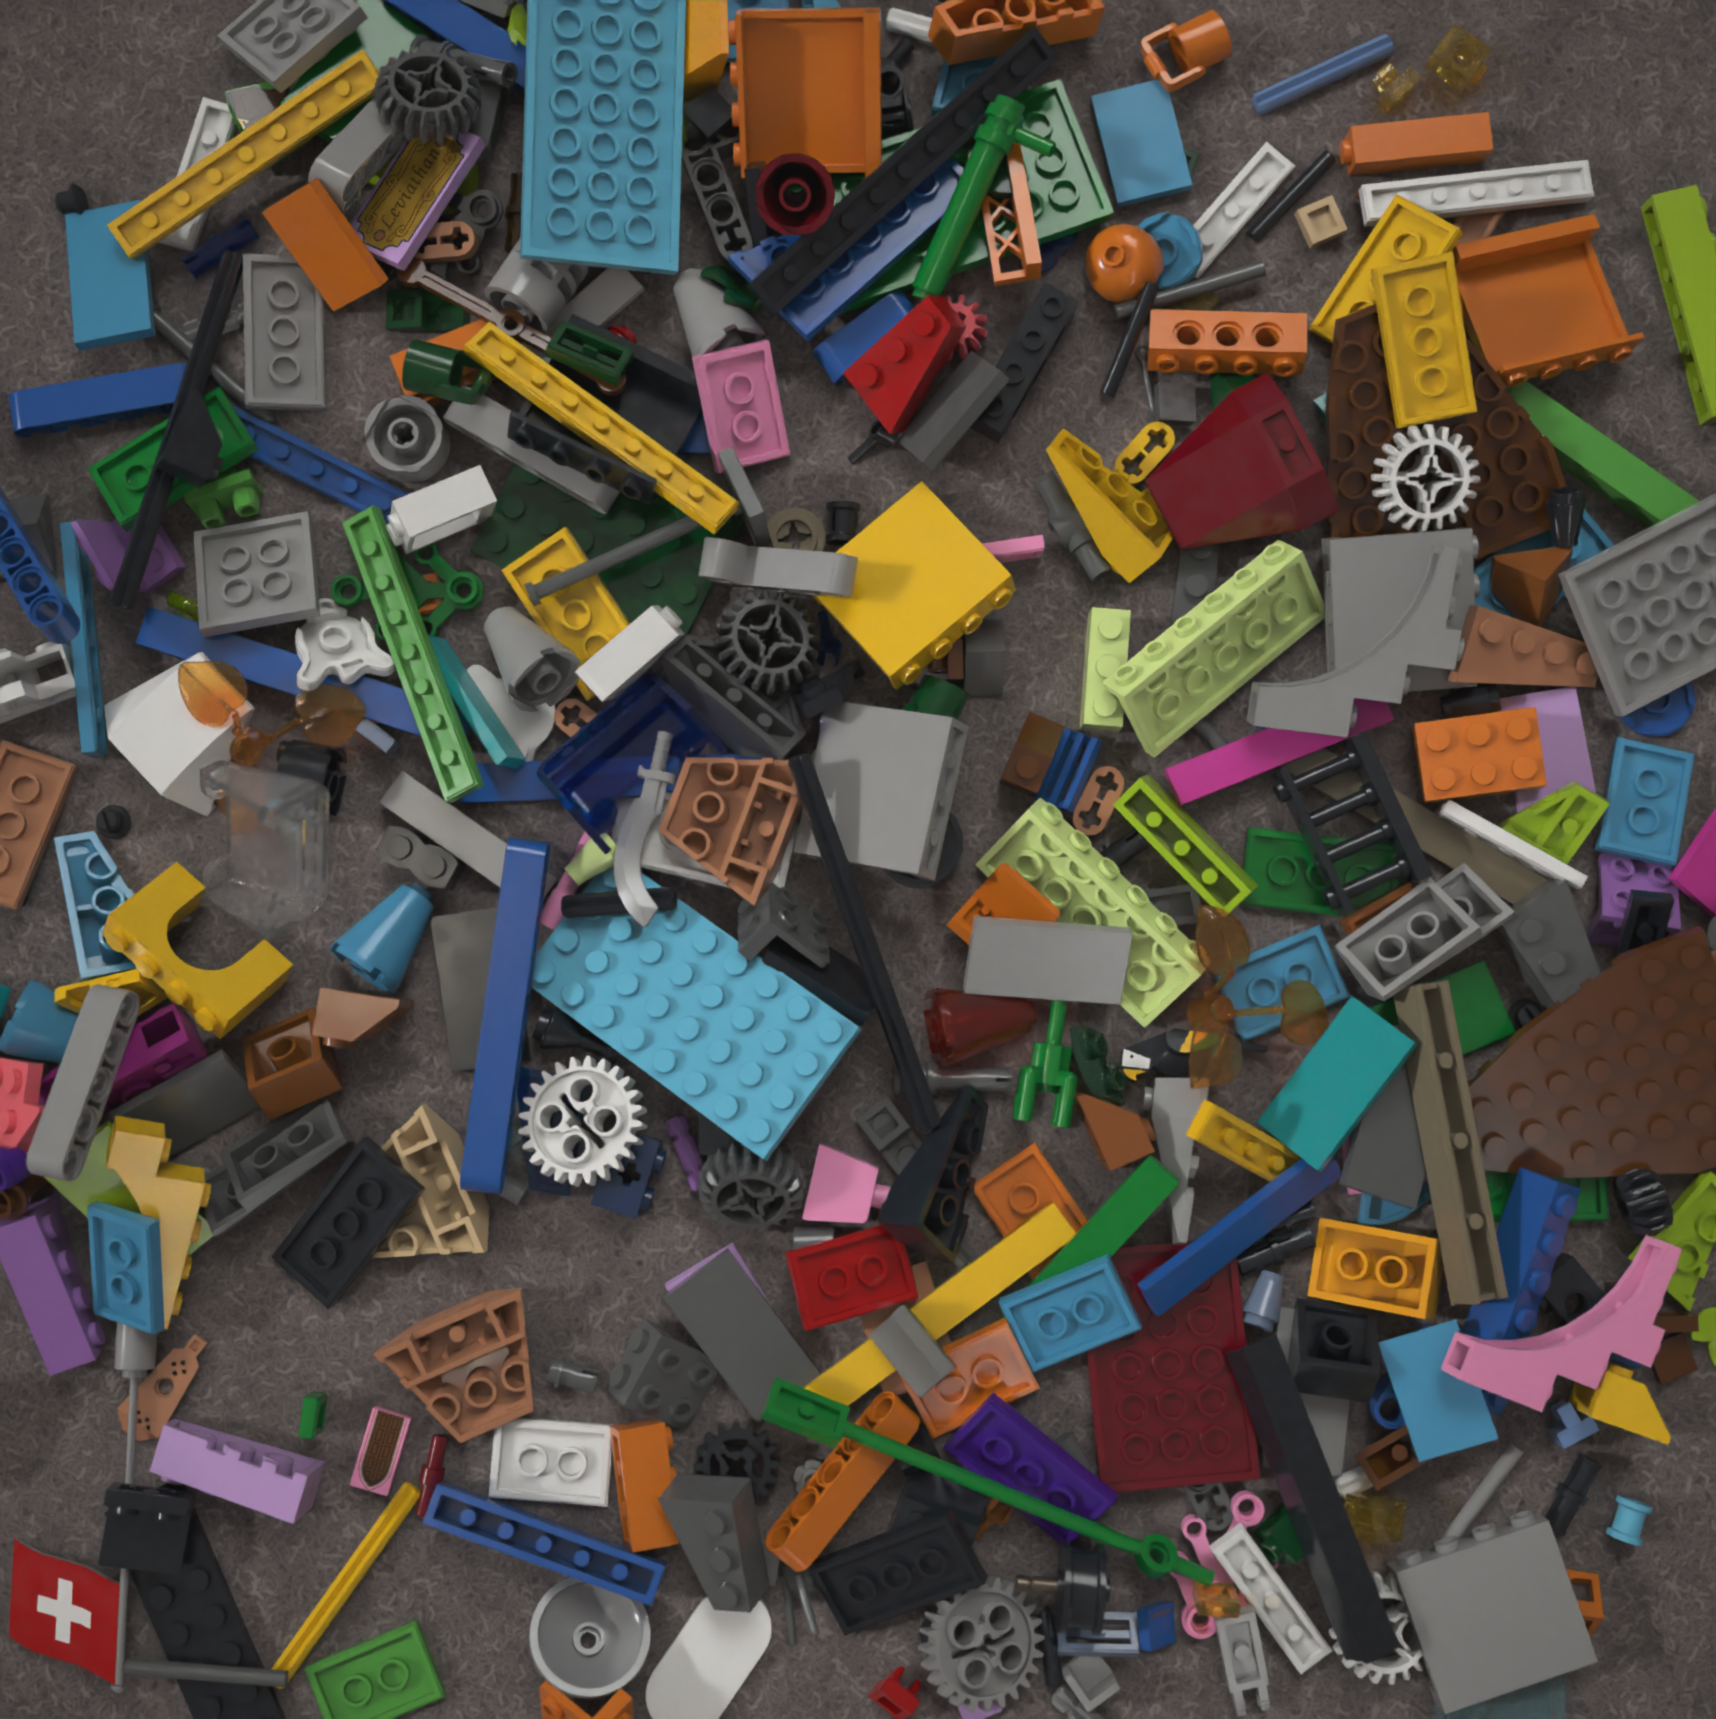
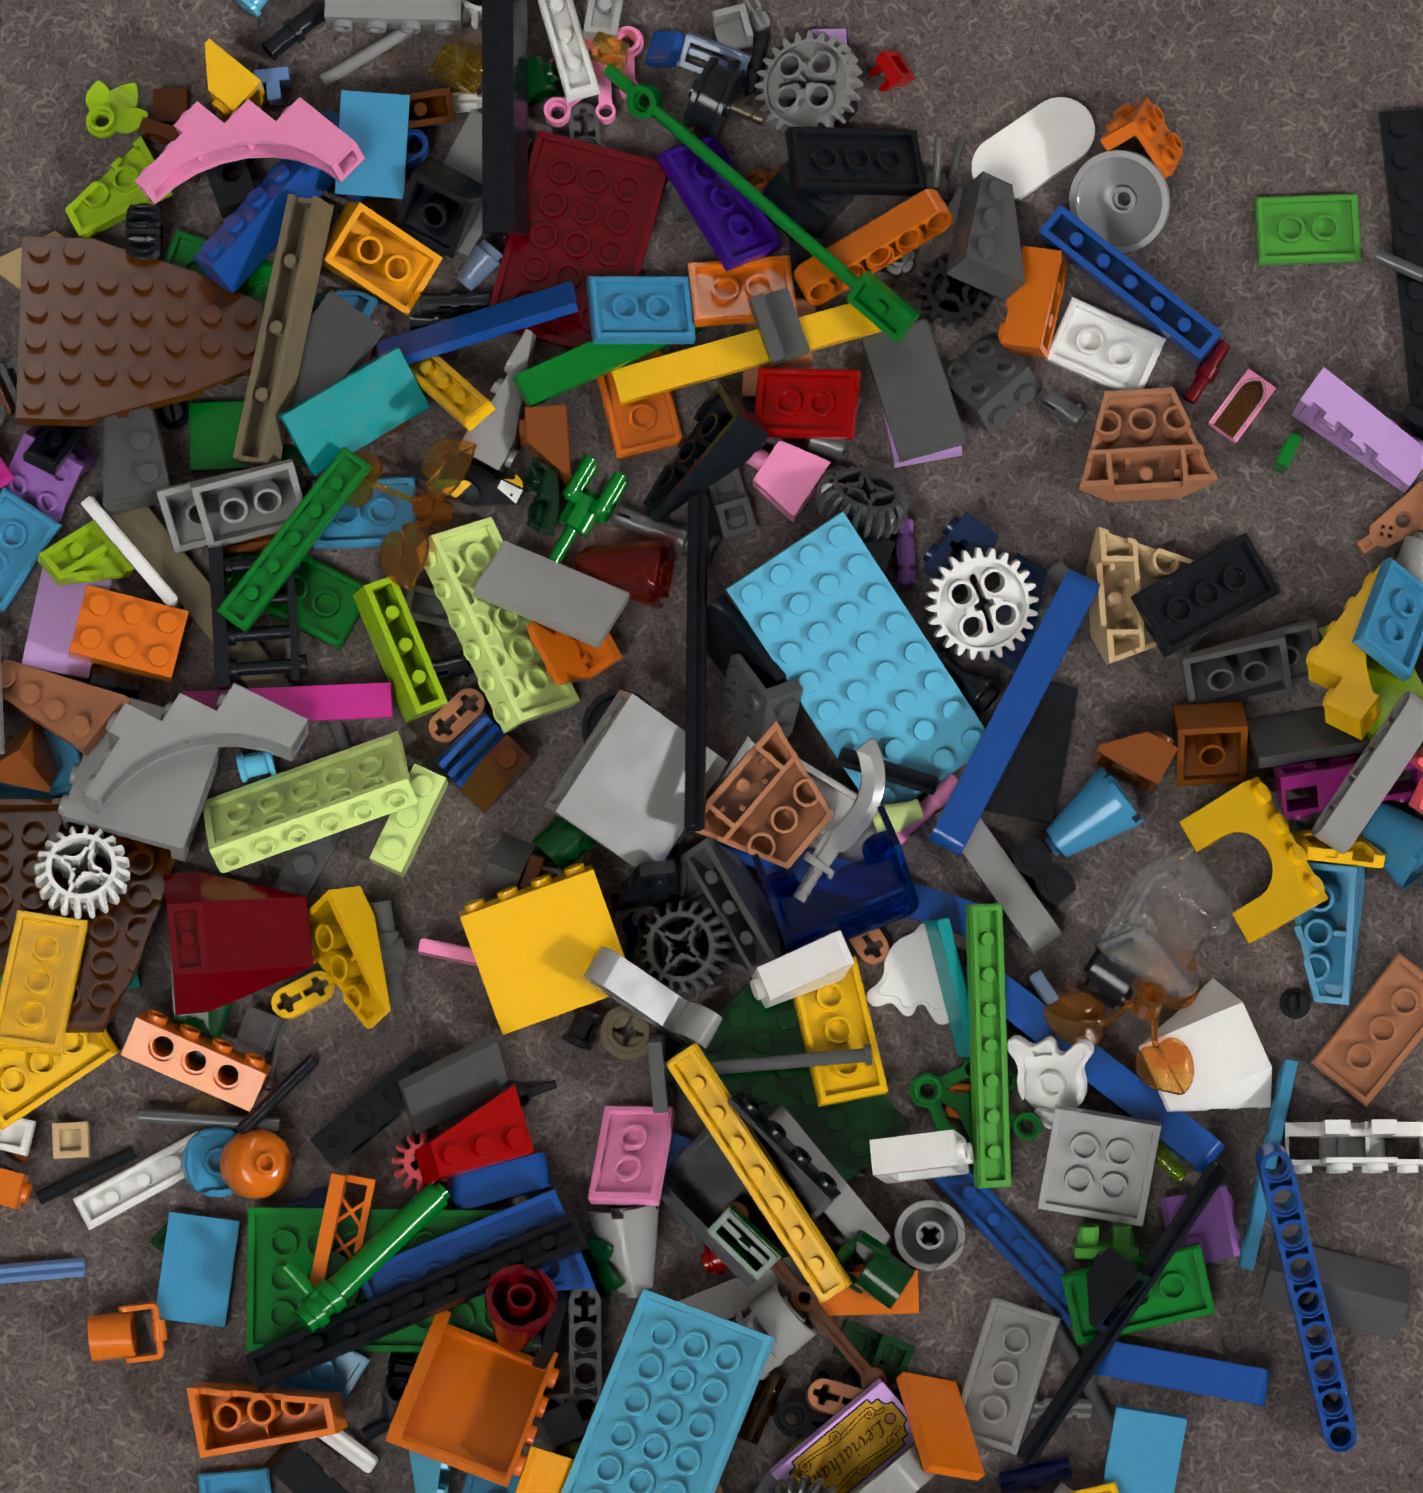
camera: 160 degrees left, 5 degrees down
(348, 1579) = (1302, 316): yellow axle -> none
(530, 660) = (891, 1005): light grey cone -> none
(1290, 669) = (255, 764): none -> medium azure bush
(1345, 916) = (294, 539): none -> green tile

